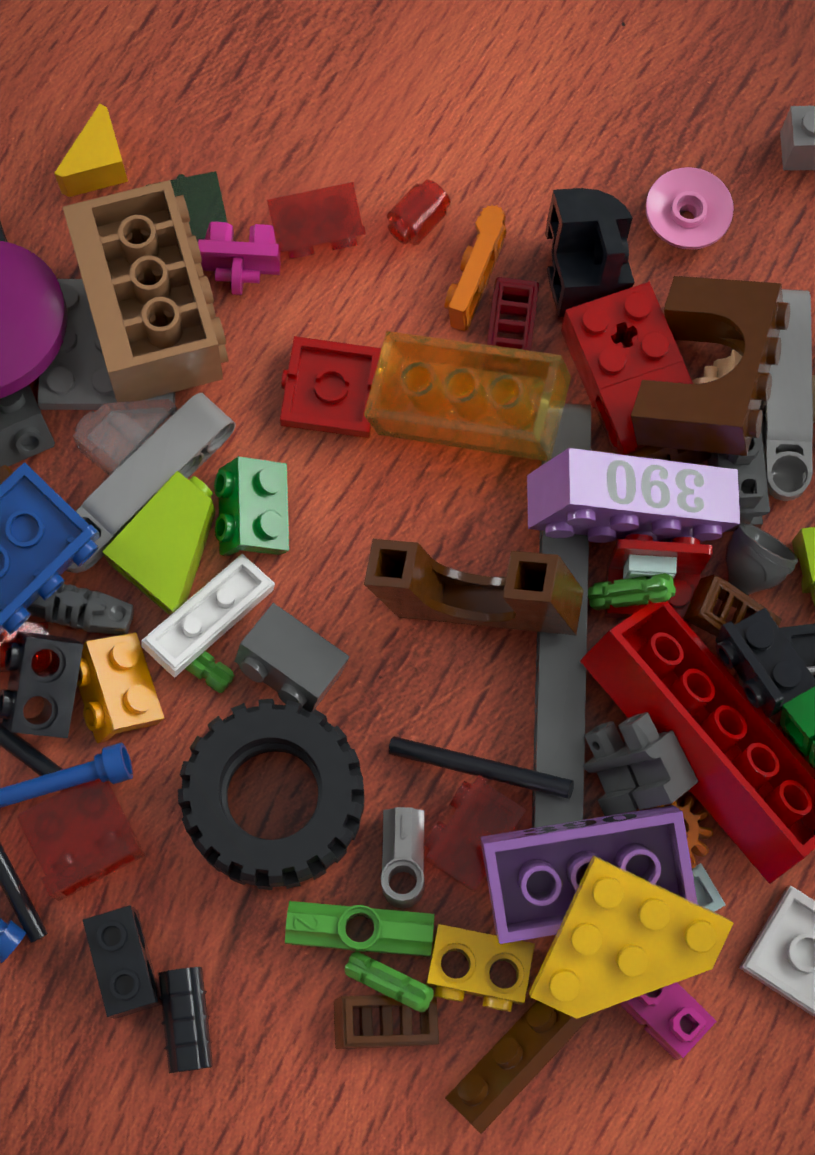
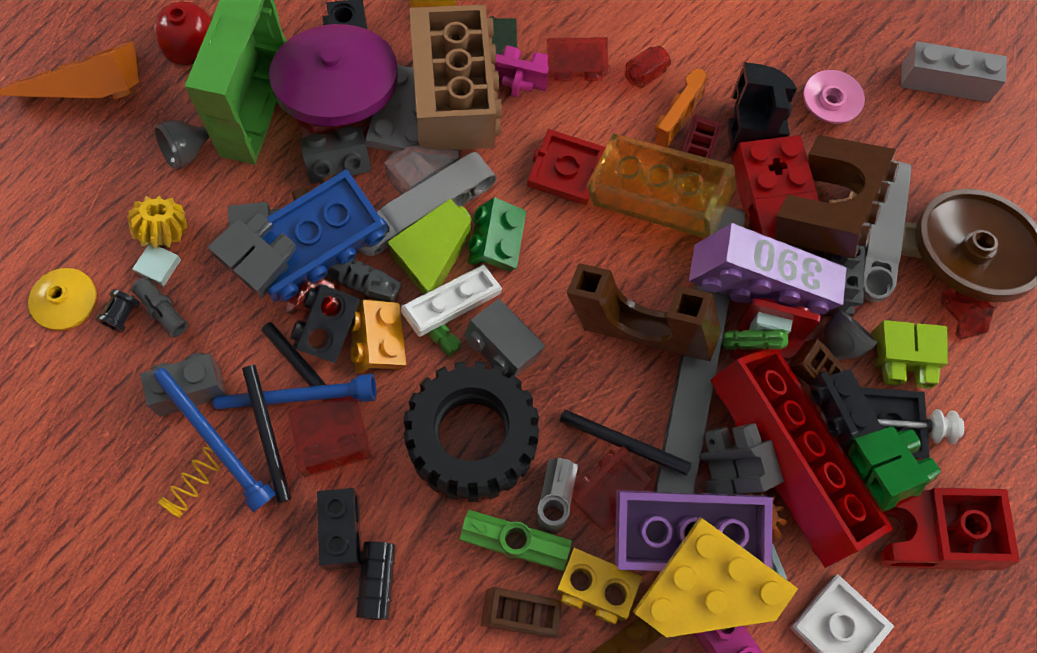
camera: 10 degrees right, 5 degrees down
(389, 981) = (530, 583): bright green axle -> none

